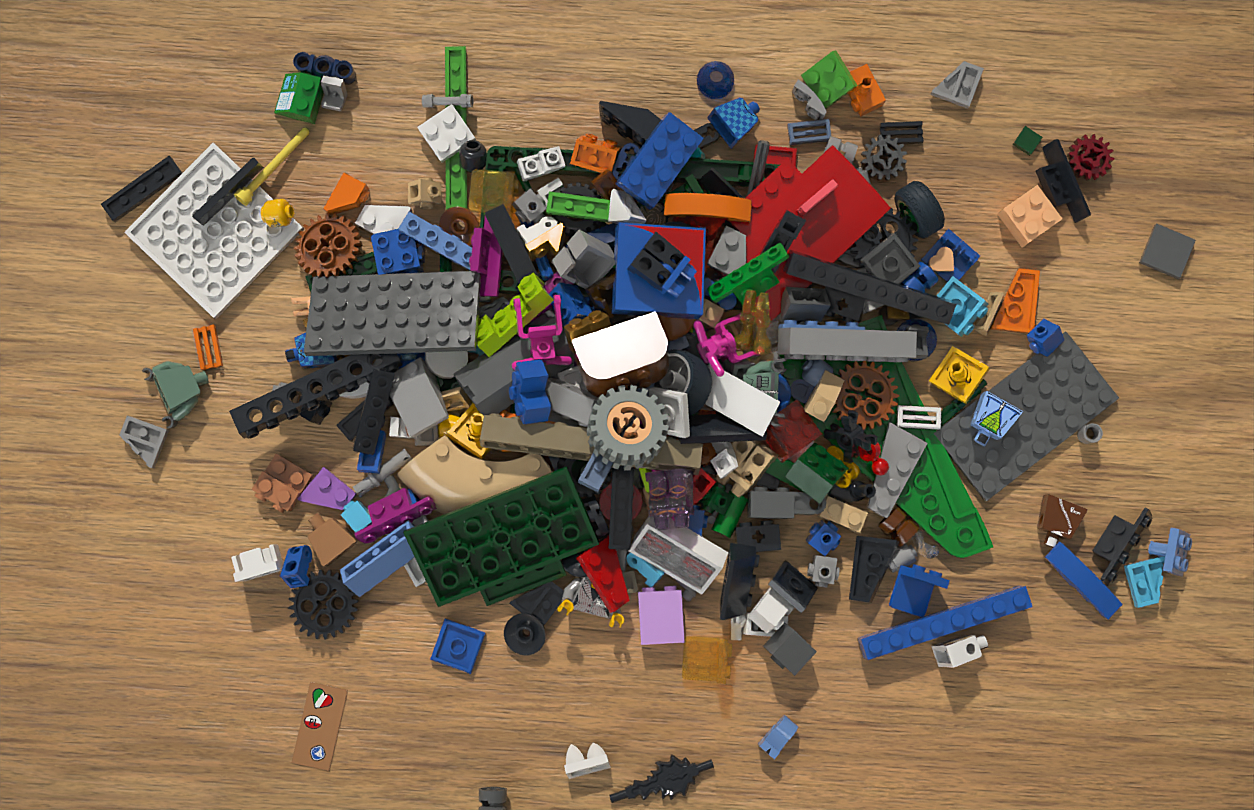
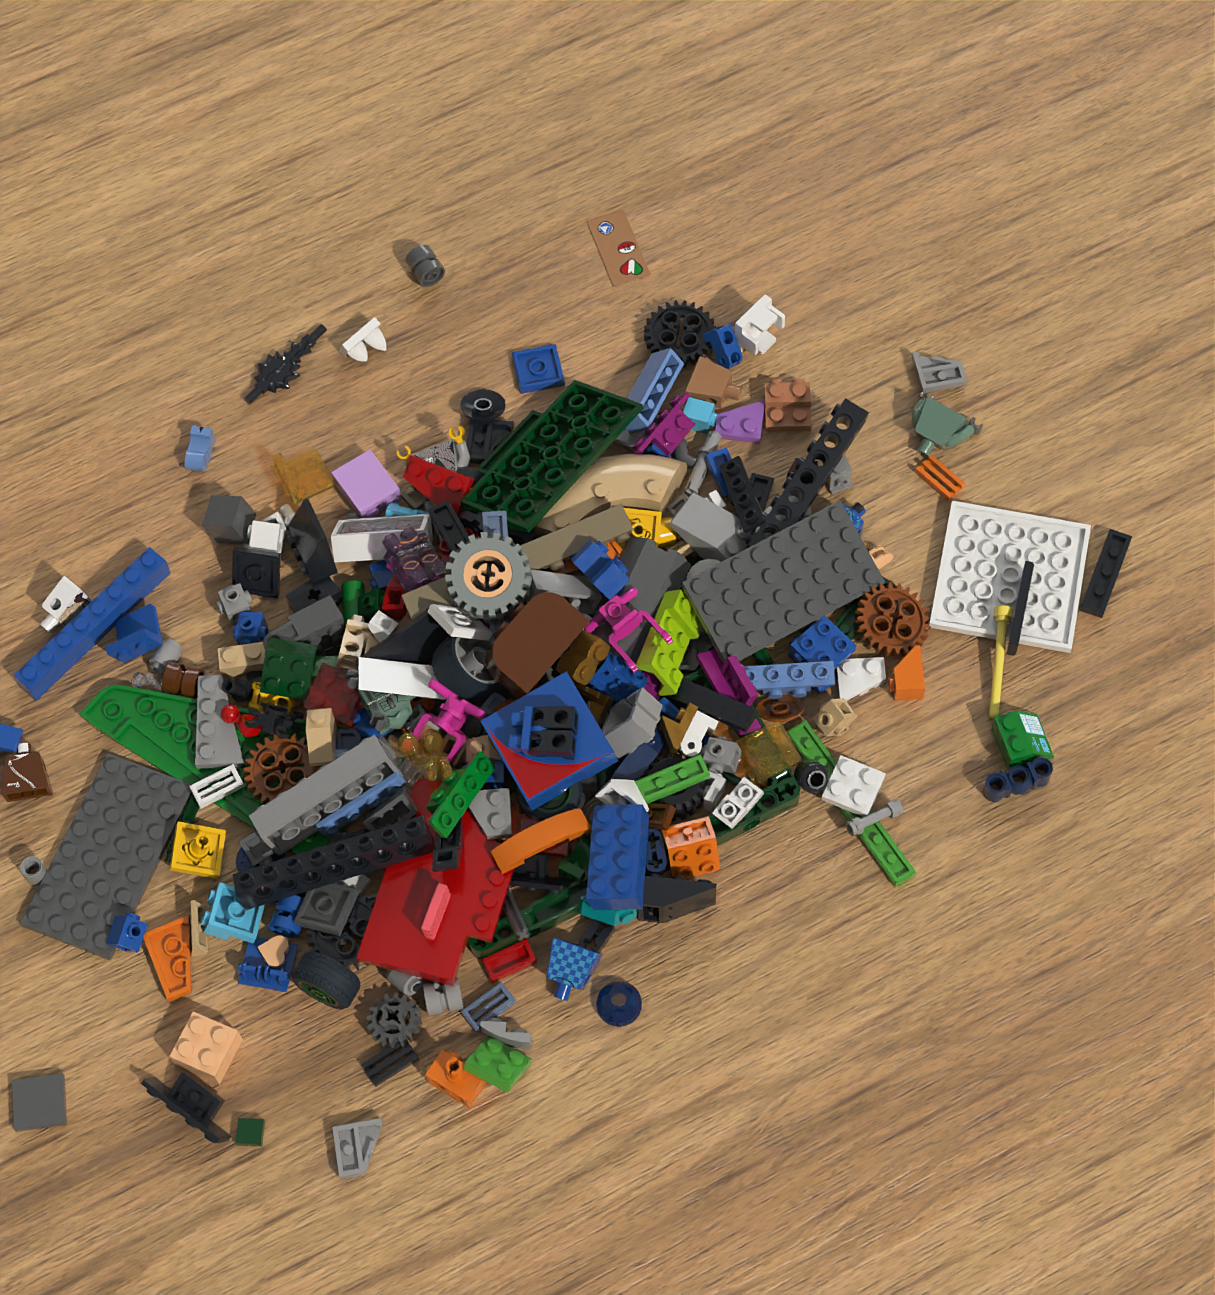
camera: 150 degrees right, 20 degrees down
(277, 213) = (959, 615): yellow head -> none
(334, 93) = (988, 758): light grey bracket -> none
(869, 566) = (192, 632): black wing -> none
(993, 417) = (140, 823): torso -> none
(1092, 148) = (165, 1157): dark red gear -> none

